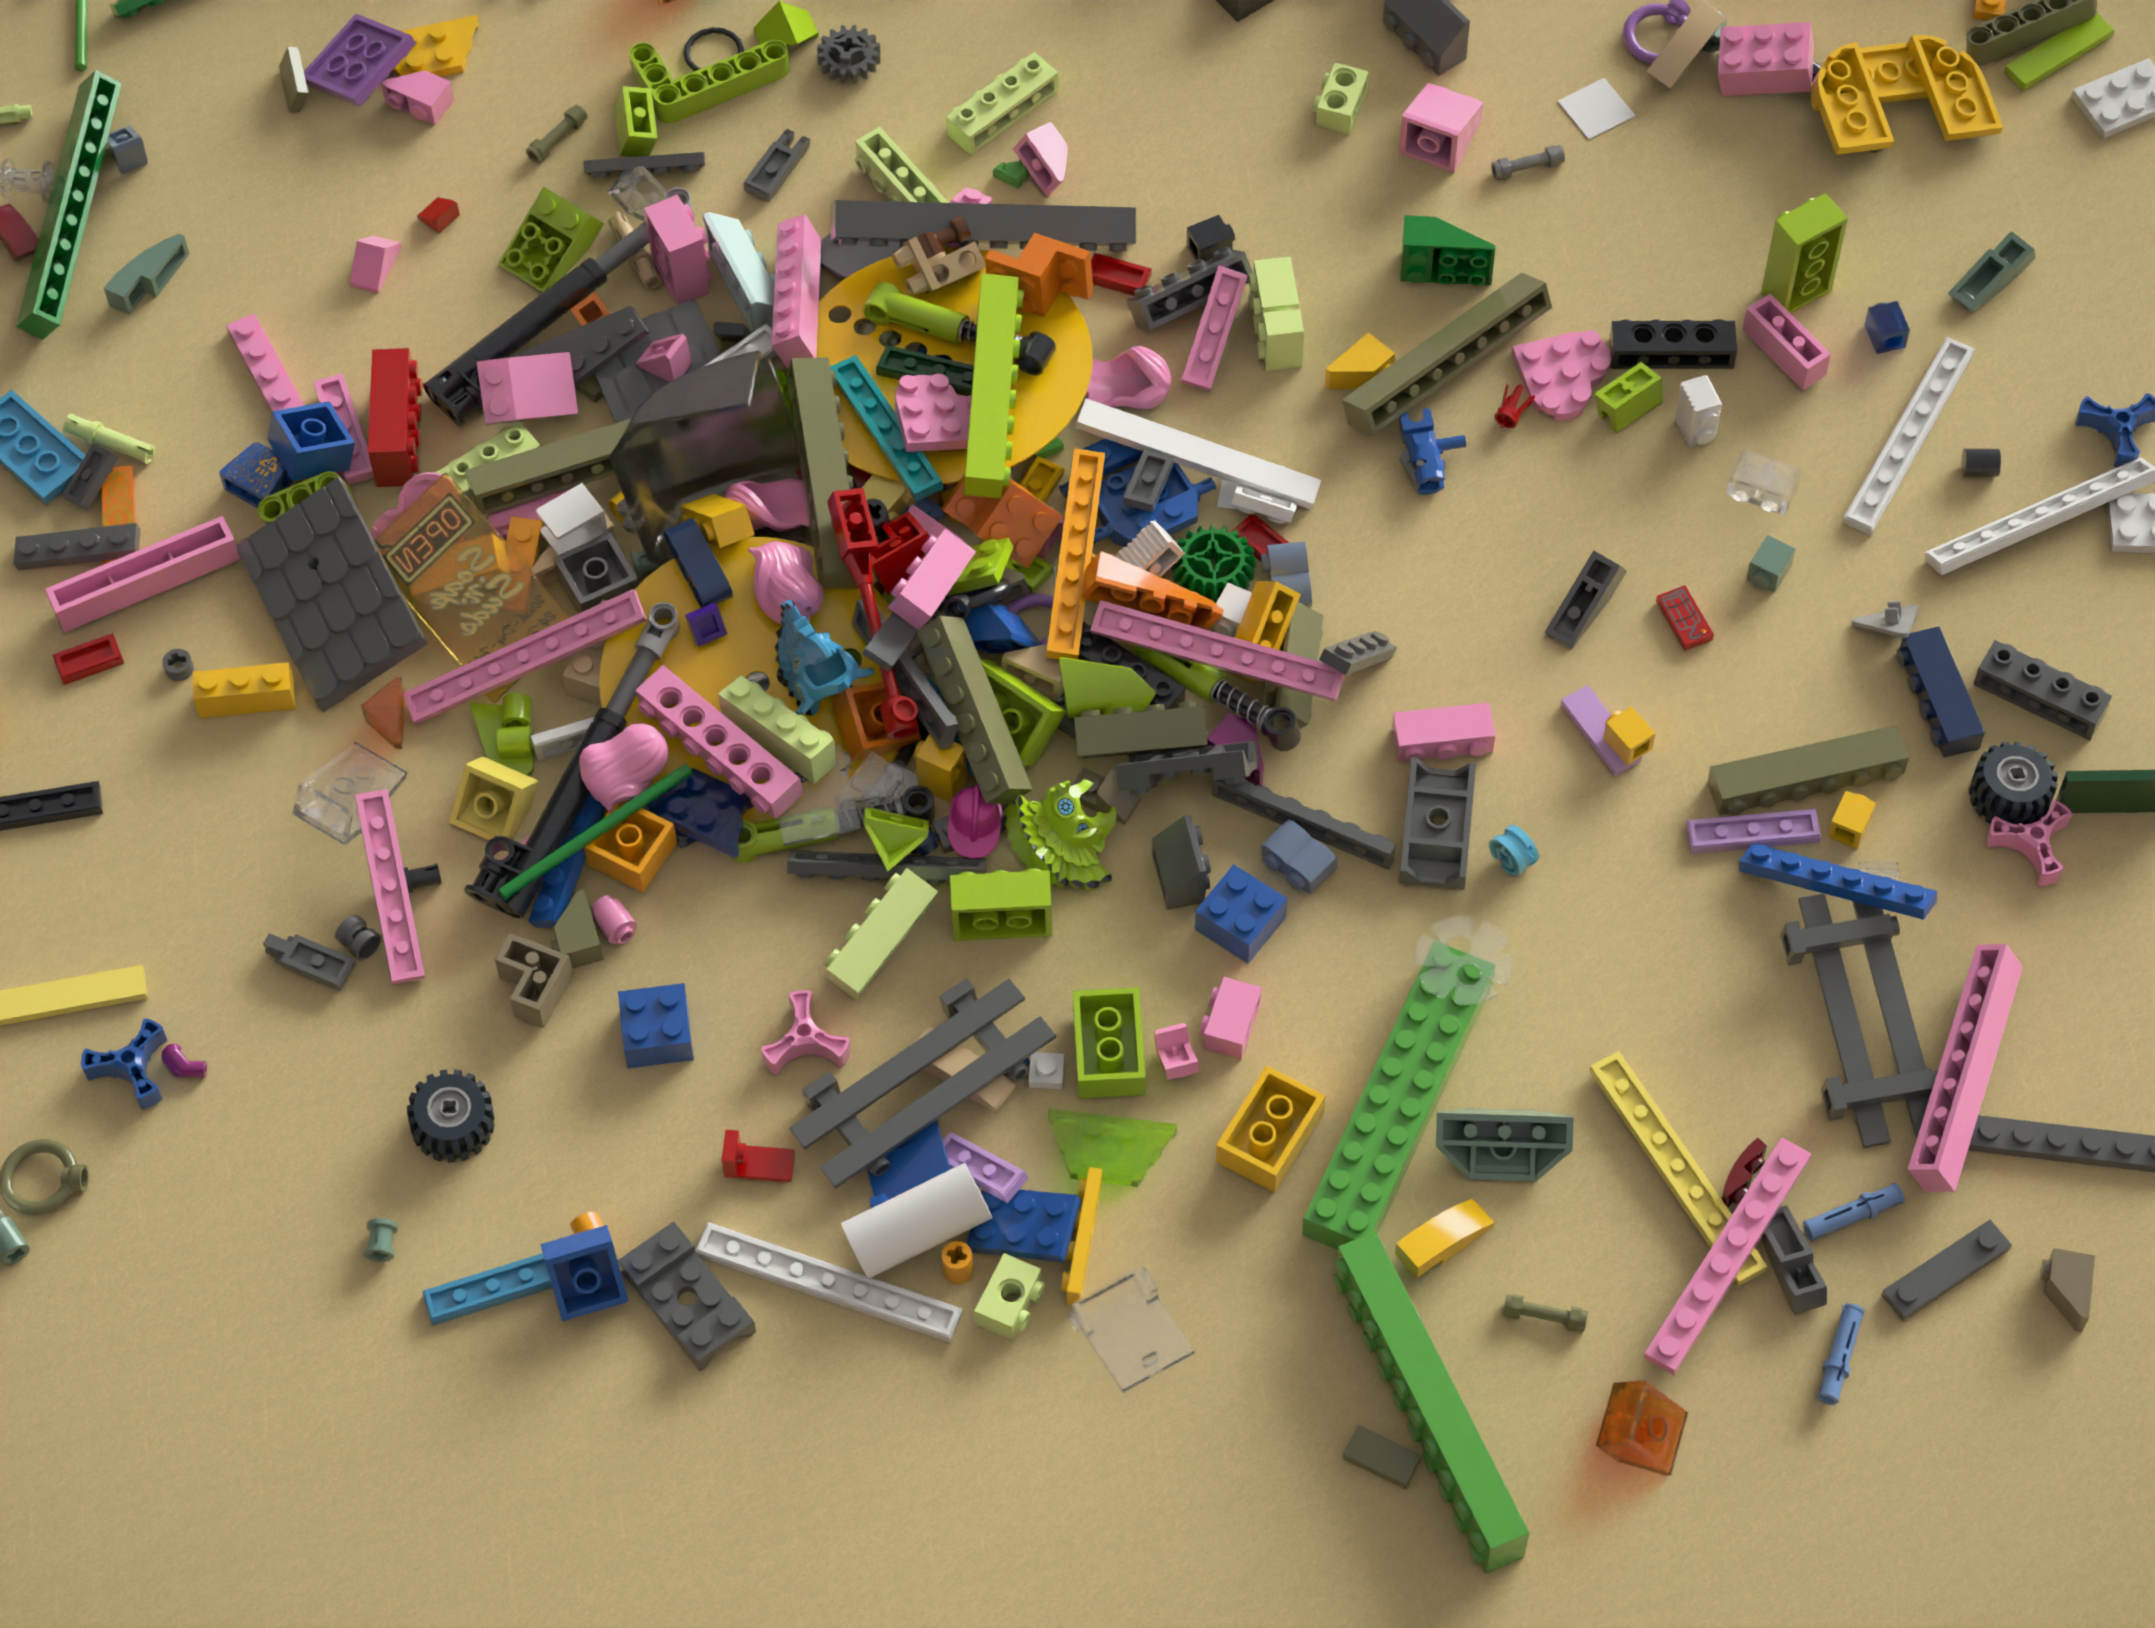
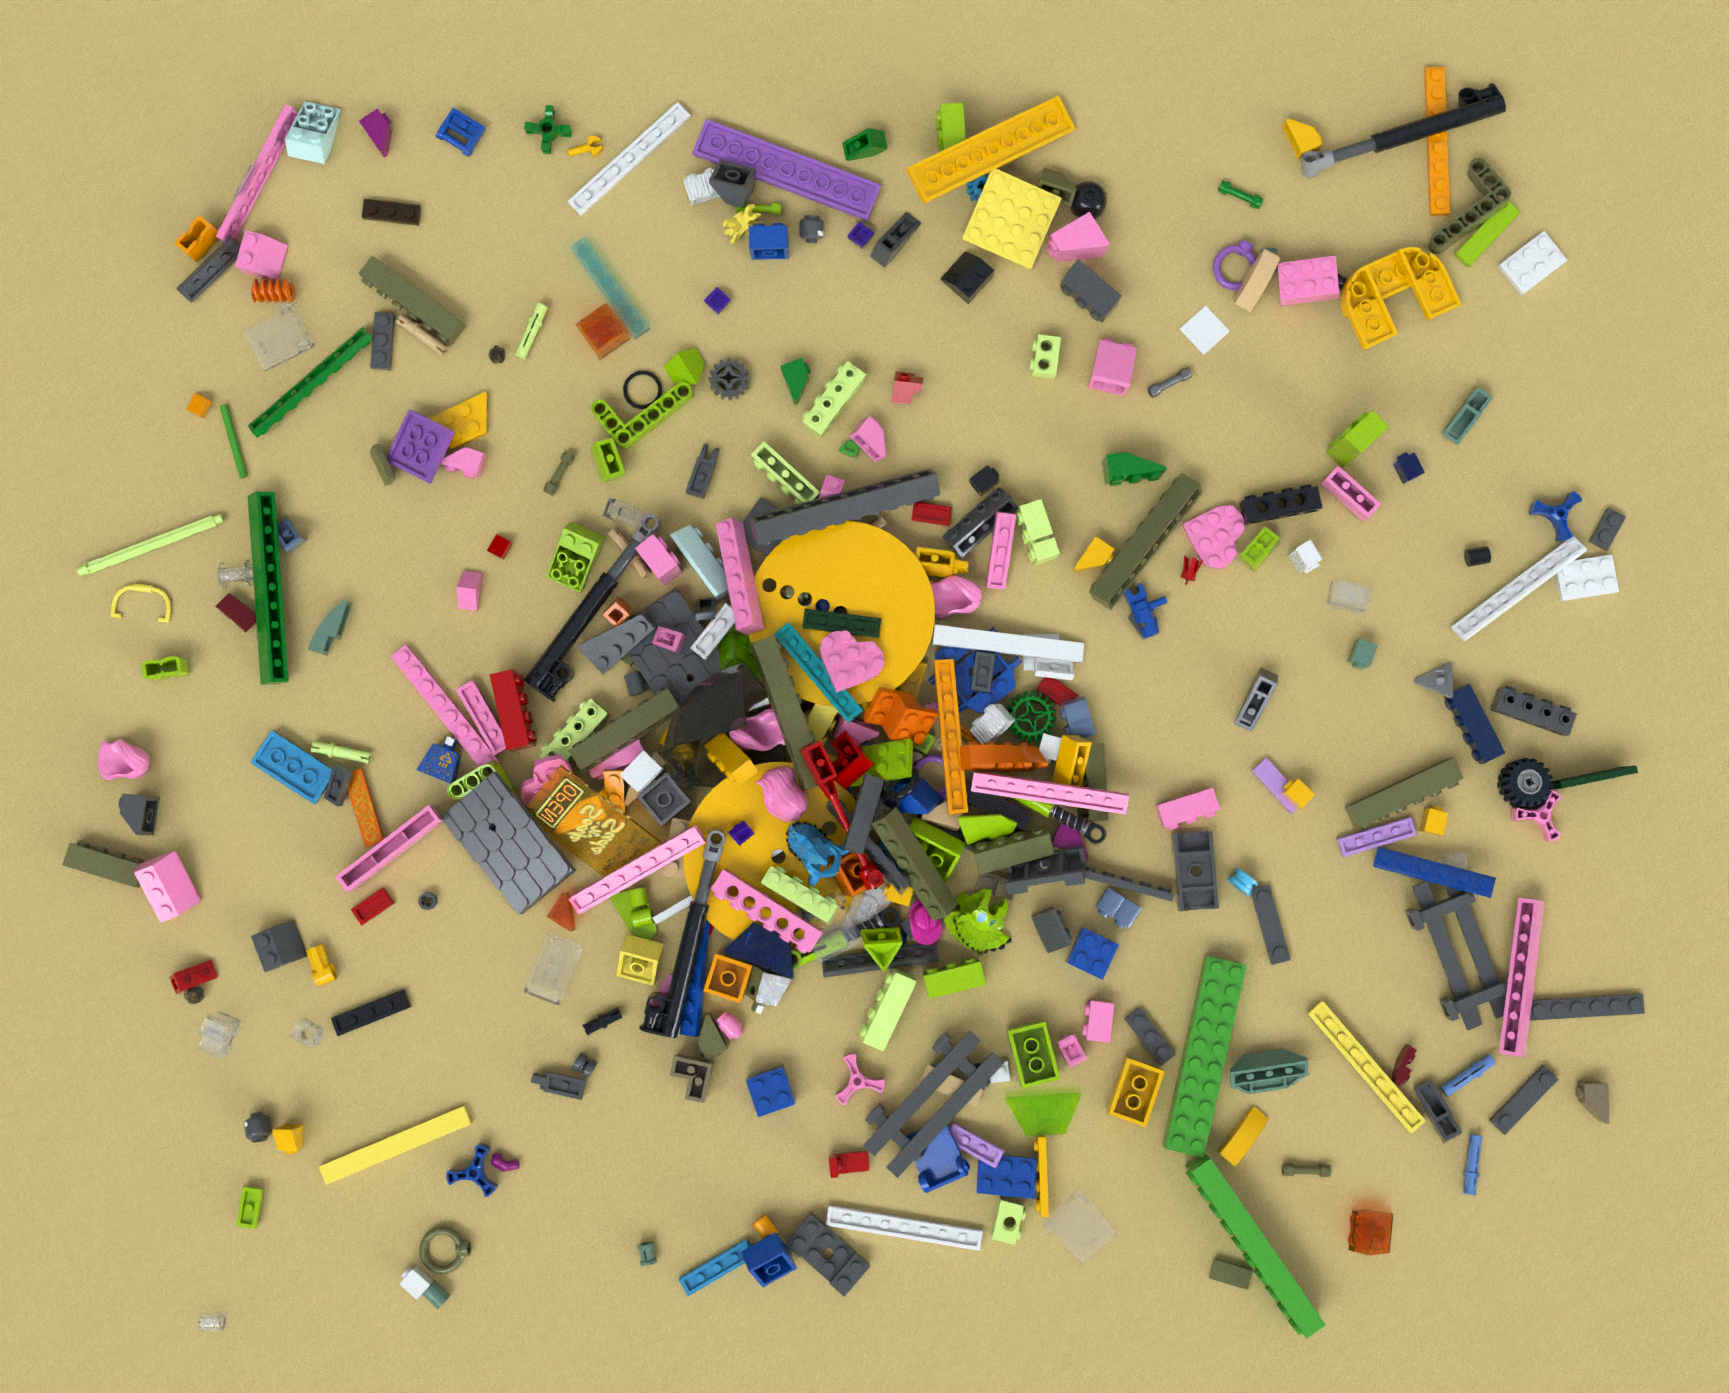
camera: 10 degrees left, 25 degrees up
(76, 546) = (344, 833): dark grey plate -> none
(244, 690) = (472, 914): yellow brick -> none
(310, 440) = (468, 742): blue brick -> none
(389, 886) = (595, 1034): bright pink plate -> none
(450, 1115) = (667, 1171): black wheel -> none
(527, 388) = (589, 678): bright pink slope -> none
(593, 415) = (634, 683): none -> dark grey piece
(595, 831) = (708, 981): green piece -> none
(623, 765) = (715, 937): bright pink piece -> none
(657, 163) = (621, 486): dark grey plate -> none
(688, 866) = (765, 987): none -> torso
(697, 563) = (727, 795): dark blue beam -> none
(879, 515) = (825, 735): black piece -> none
(890, 305) = (803, 580): lime piece -> none
(916, 1220) = (950, 1197): white brick -> none
(930, 578) = (873, 789): bright pink brick -> none
(931, 262) = (825, 548): tan hips -> none
(951, 67) = (796, 377): none -> green slope
(957, 1262) = (974, 1205): light orange piece -> none
(991, 386) = (880, 641): lime brick -> none
(1044, 271) = (890, 547): orange bracket -> none
(1114, 101) = (905, 386): none -> brick
(1116, 329) = (940, 562): none -> yellow hinge
(1313, 1059) = (1149, 1036): none -> dark grey plate
(1358, 652) = (1132, 774): dark grey plate -> none
(1483, 945) = (1218, 982): clear piece -> none
(1550, 929) = (1270, 925): none -> dark grey plate
(1684, 618) = (1315, 698): tile -> none
(1727, 1256) = (1404, 1121): bright pink plate -> none
(1908, 436) = (1431, 542): white tile -> none

